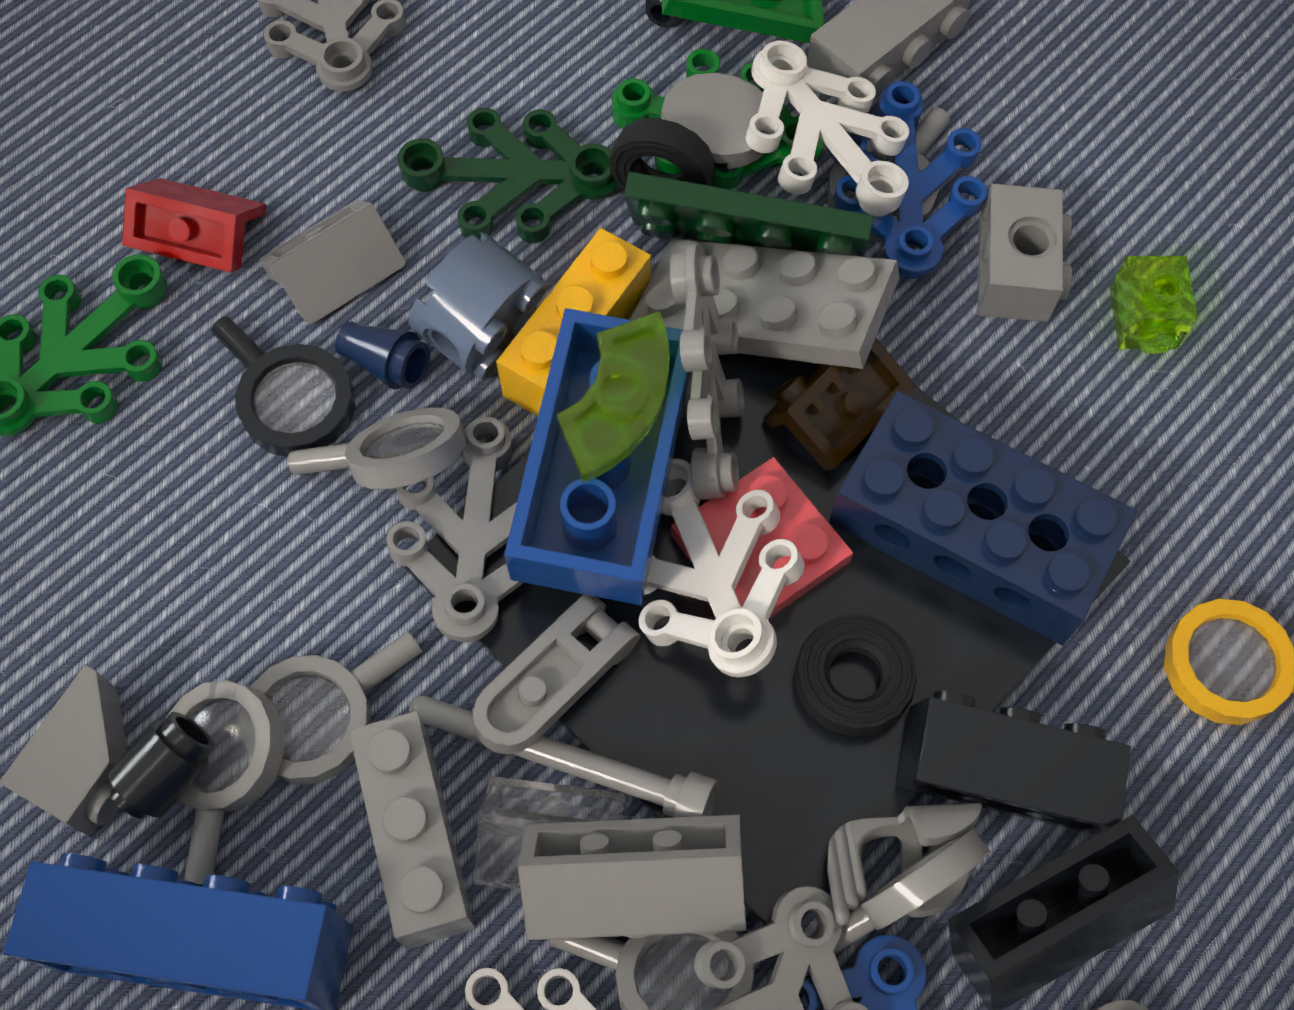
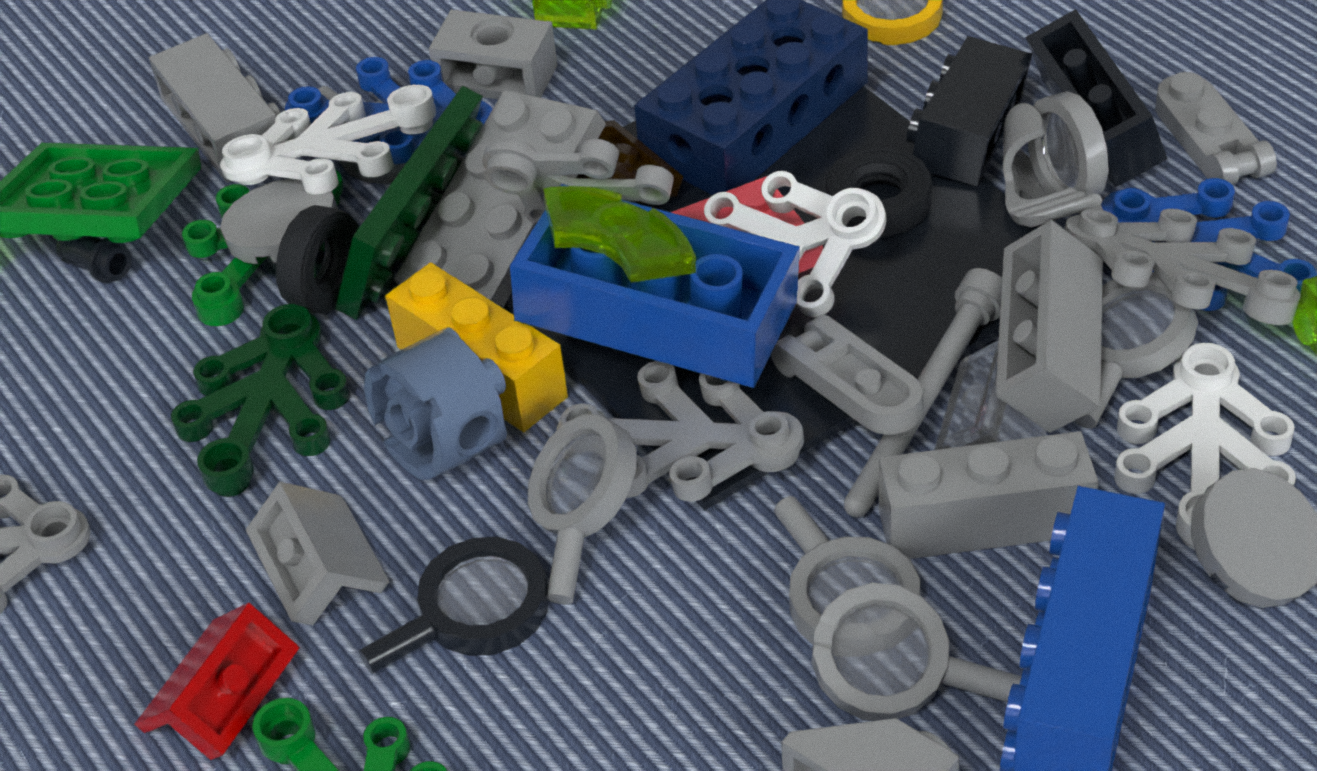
camera: 75 degrees left, 20 degrees down
(160, 766) = (905, 674): black brick -> none
(387, 354) = (455, 505): dark blue cone -> none

